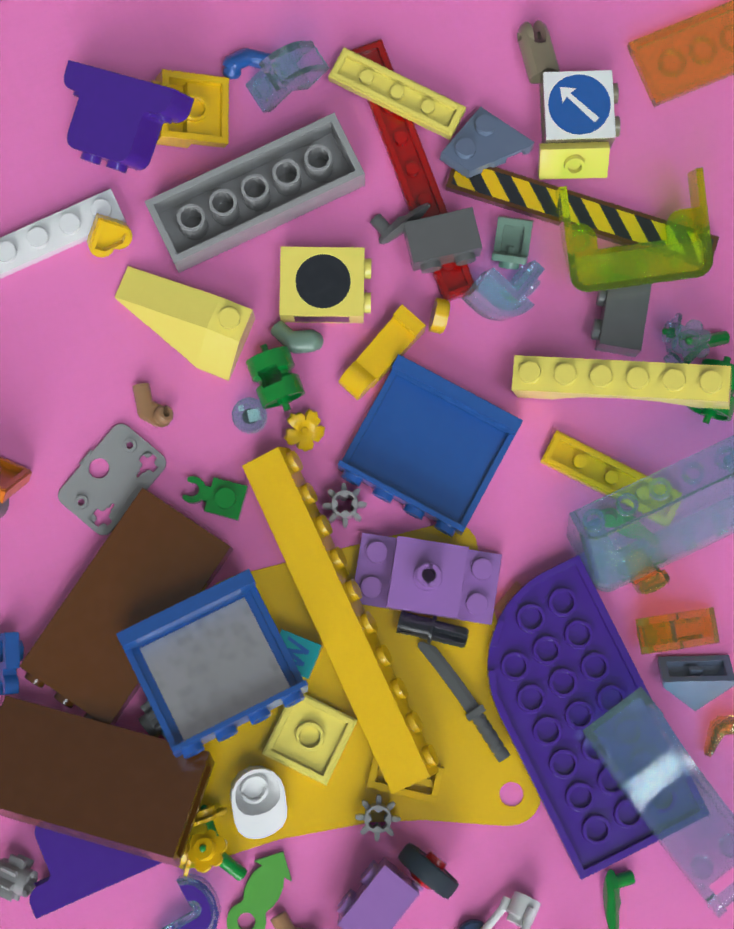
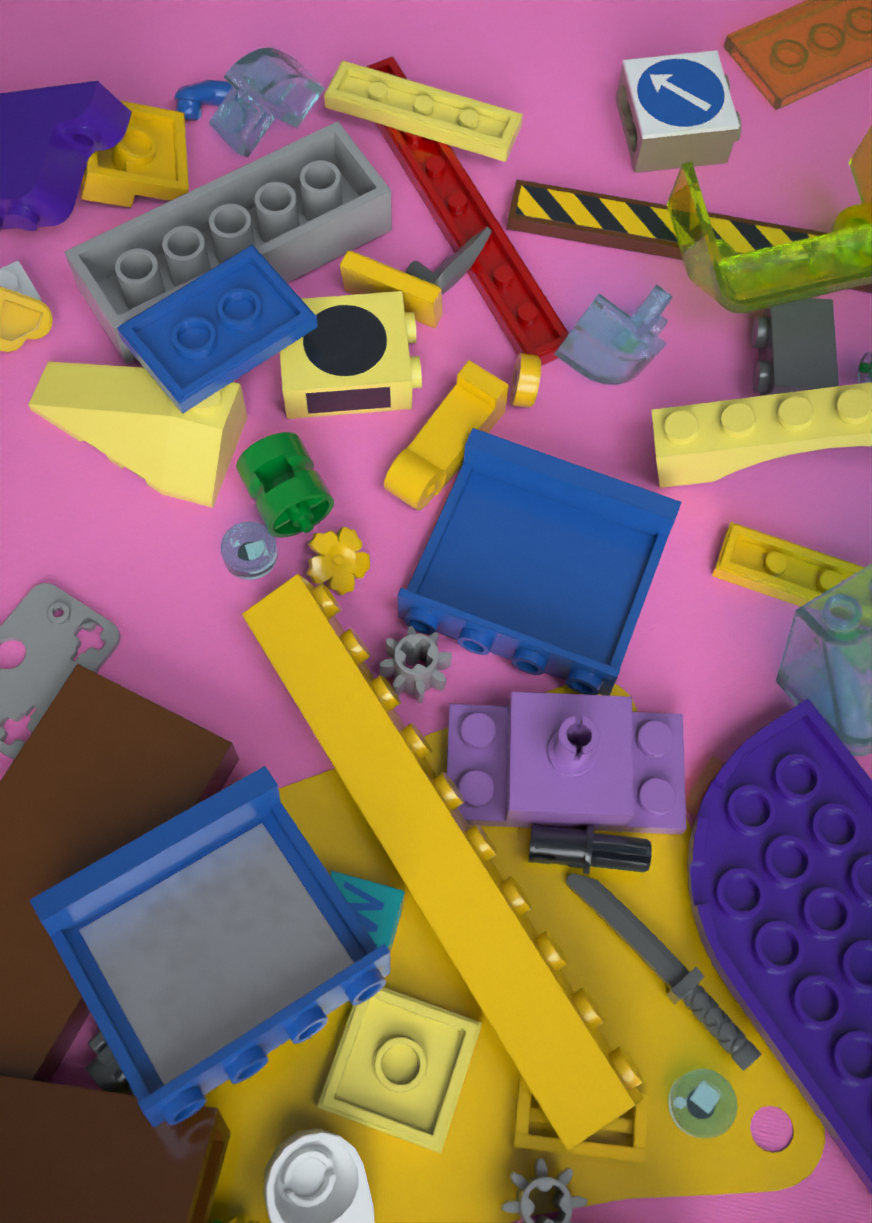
camera: 10 degrees left, 15 degrees down
(148, 409) = (88, 557): medium nougat arm -> none
(221, 499) = (213, 679): green plate -> none
(241, 272) = (217, 328): none -> blue tile
(297, 341) = (317, 434): sand green arm -> none
(359, 237) = (369, 276): none -> yellow tile
(443, 240) = (516, 272): dark grey brick -> none
(474, 776) = (702, 1103): none -> clear light blue tile
(484, 144) = (554, 161): sand blue wing -> none
(512, 242) = (617, 272): sand green bracket -> none
(536, 50) = (604, 50): dark tan piece -> none
(573, 160) = (658, 167): light yellow plate -> none

